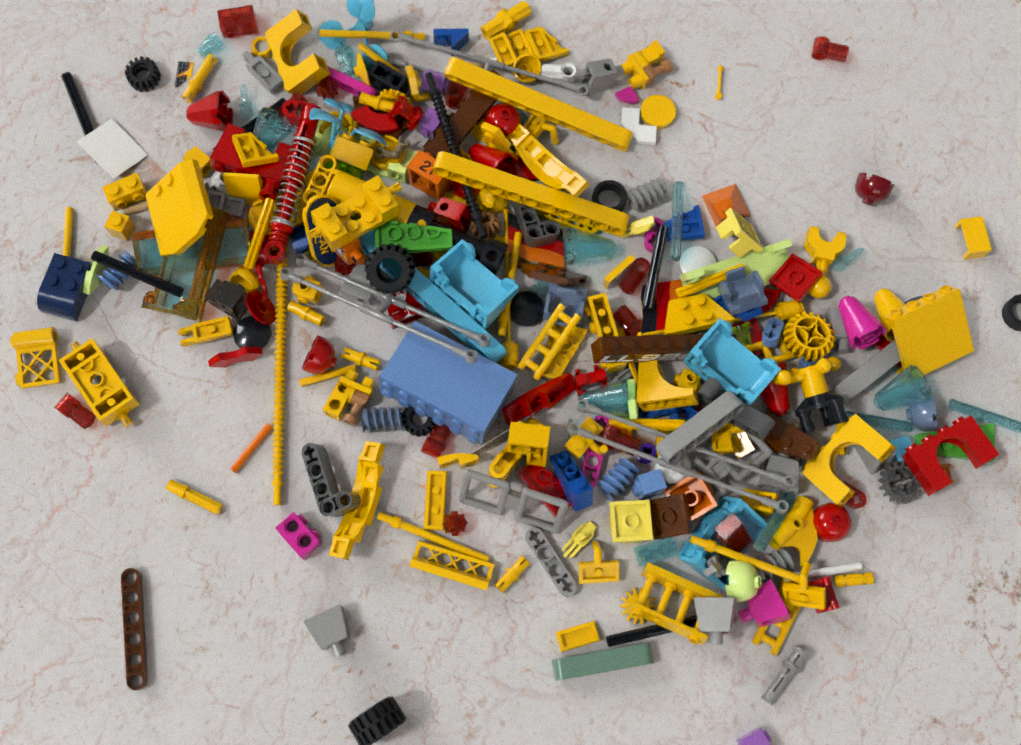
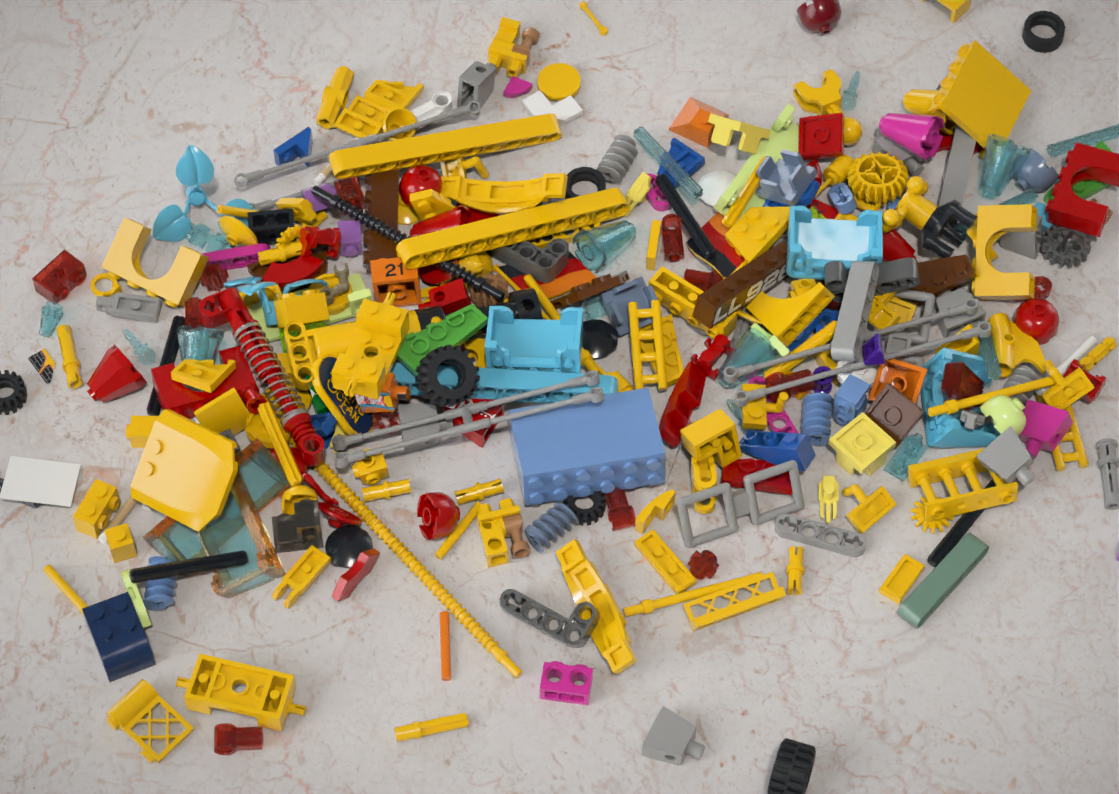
camera: 35 degrees left, 15 degrees down
(366, 34) = (208, 200): yellow bar -> none
(688, 466) = (873, 351): none -> dark purple slope

